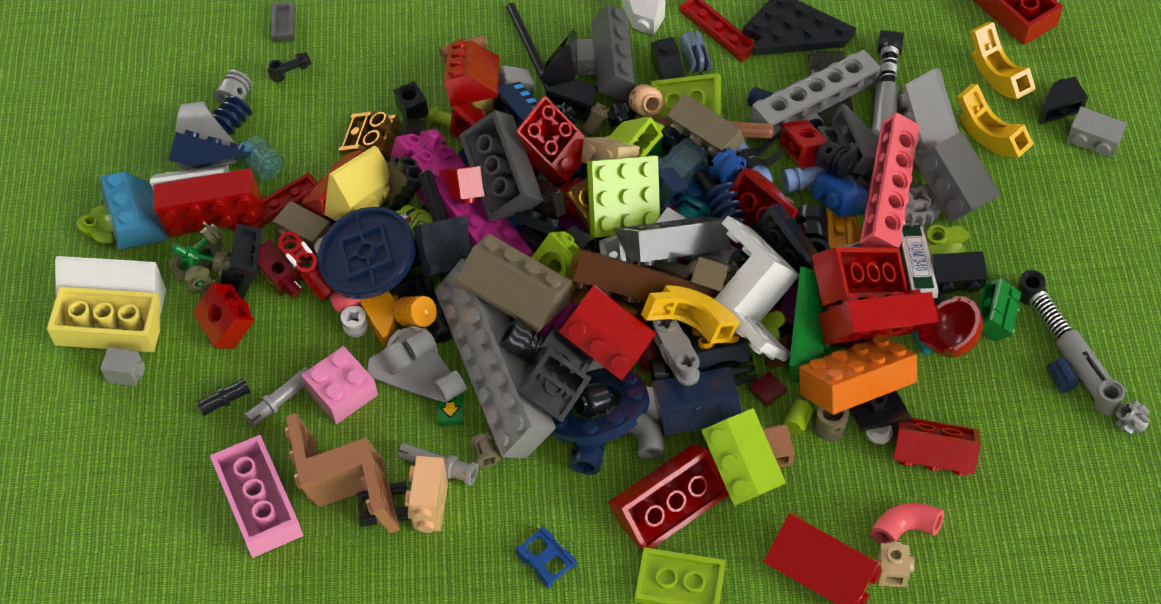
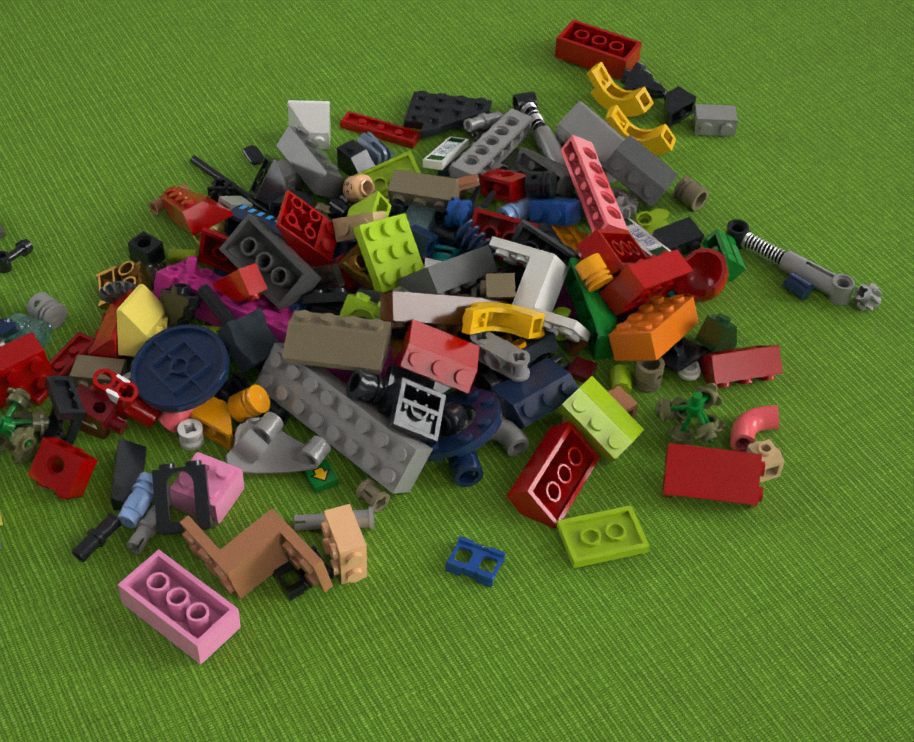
camera: 30 degrees left, 10 degrees down
(275, 374) = (137, 501): none -> light blue axle
(280, 343) = (128, 466): none -> black slope
(290, 141) = (47, 310): none -> light grey piece
(325, 373) = (201, 491): none -> black panel
(351, 144) = (114, 290): none -> dark grey gear
(515, 54) = (220, 187): none -> black gear
(573, 18) = (253, 154): none -> black piece
(764, 83) = (445, 153): none -> tile
(813, 293) = (593, 272): none -> light orange piece
(828, 53) = (482, 121): none -> light grey pin
(844, 477) = (685, 410): none -> olive plant
(926, 404) = (717, 333): none -> dark green slope
(1009, 219) = (691, 193): none -> dark tan piece
(1038, 56) = (640, 77): none -> black rock

